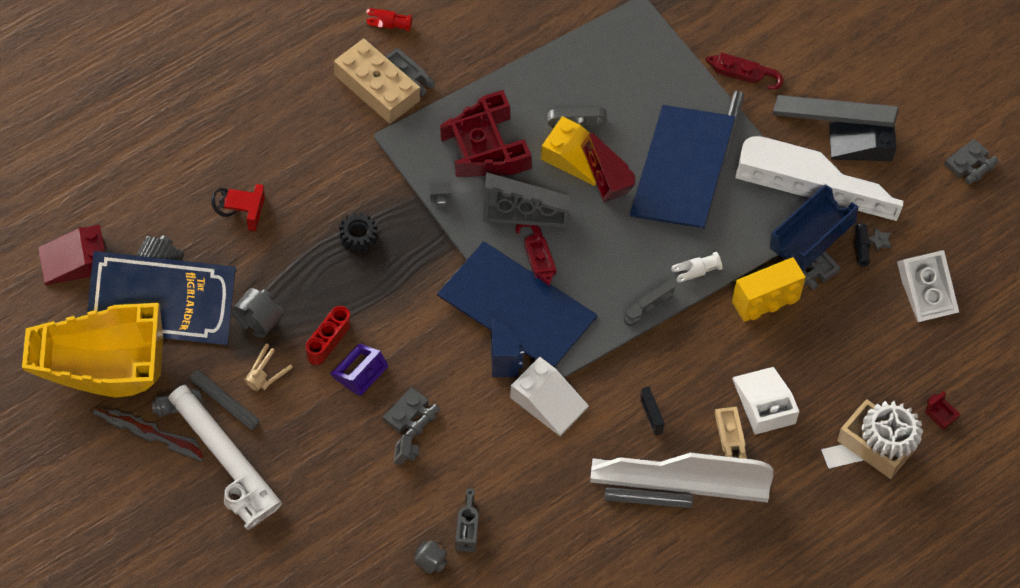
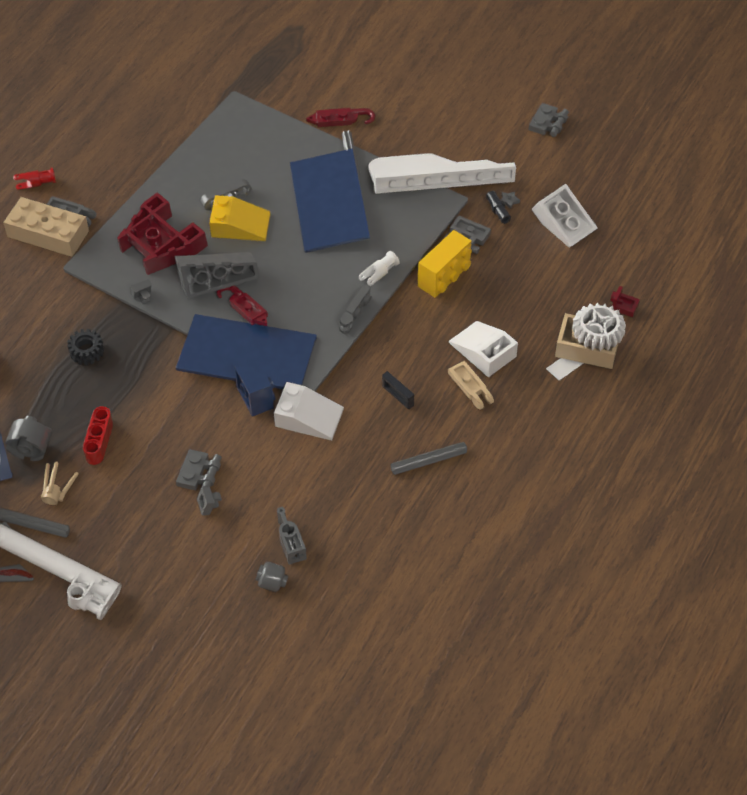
camera: 20 degrees left, 5 degrees down
(365, 373) = (143, 455): dark purple tile -> none
(608, 169) = (271, 219): dark red slope -> none
(690, 474) = (455, 424): white piece -> none
(813, 228) = (456, 205): dark blue brick -> none
(836, 111) = (428, 118): dark grey tile -> none
(861, 142) = (459, 131): black slope -> none

